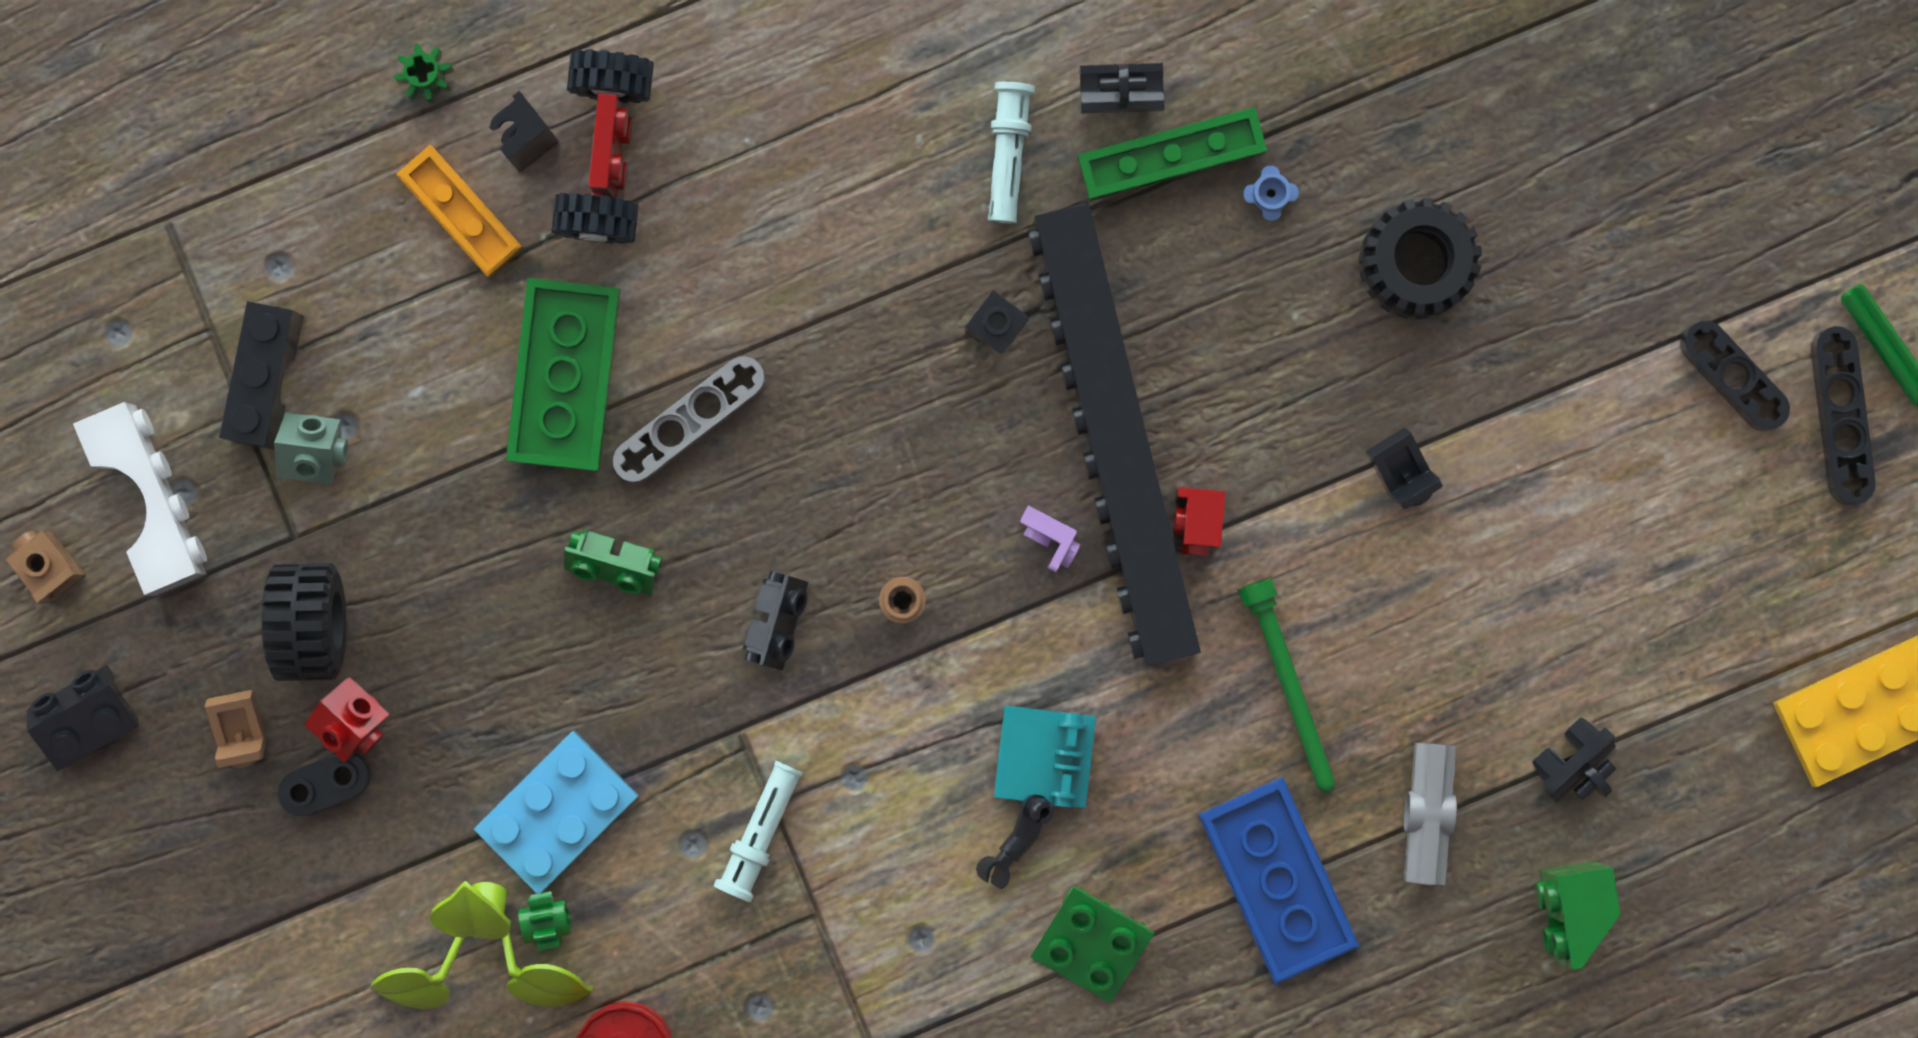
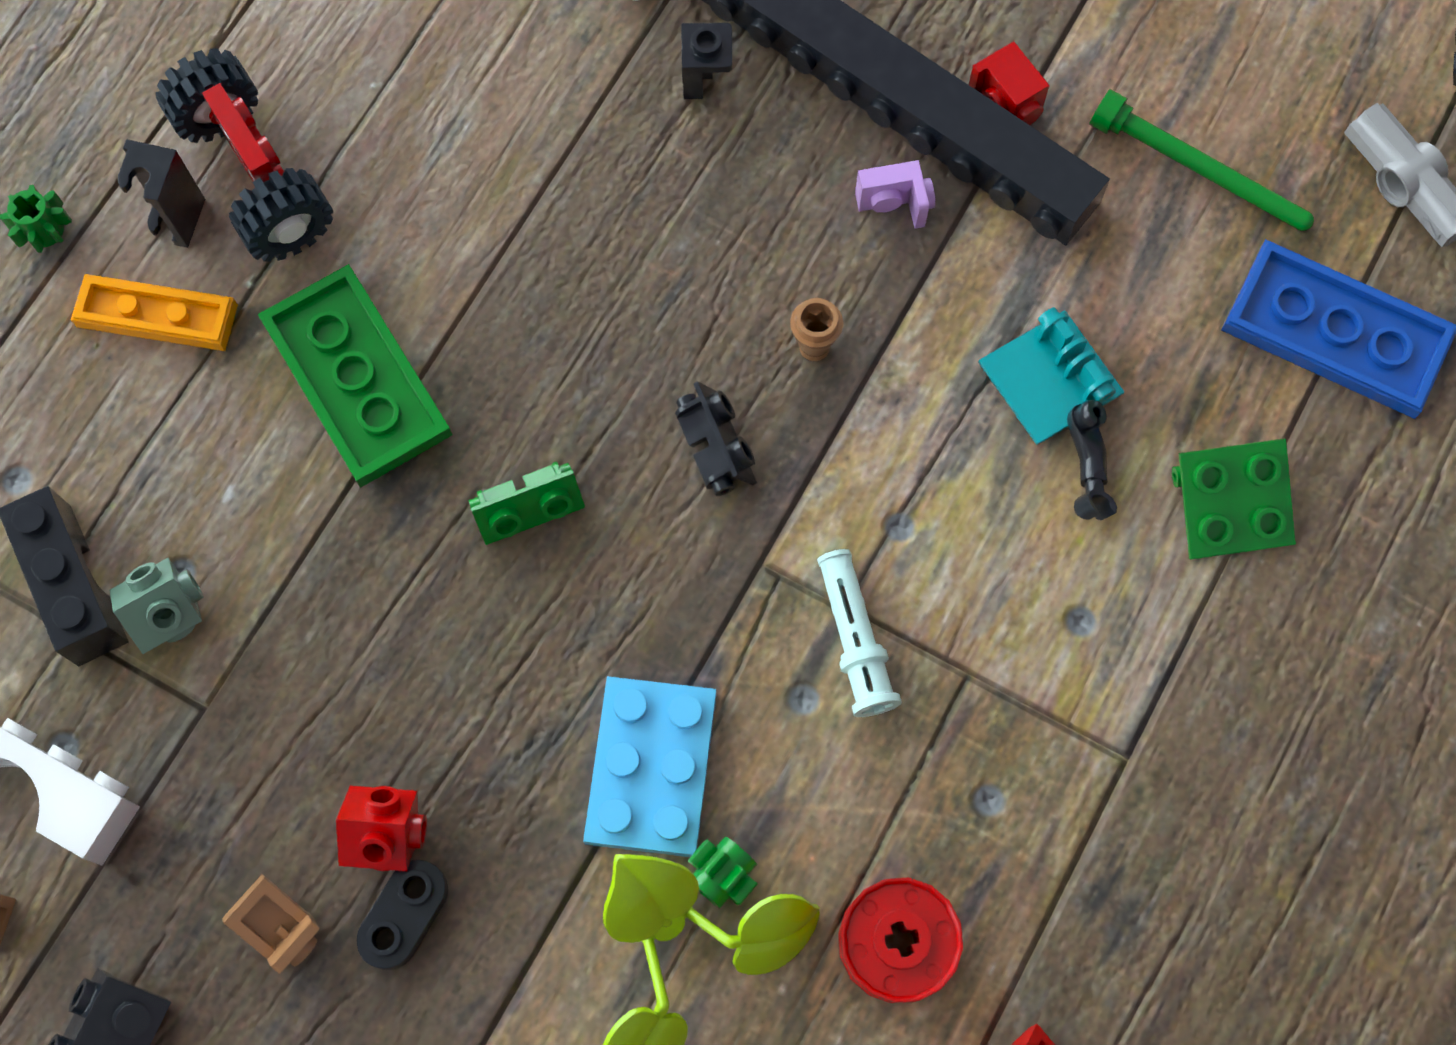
camera: 30 degrees left, 15 degrees down
(304, 622) = (264, 759): black tyre -> none
(693, 425) = (505, 333): light grey beam -> none

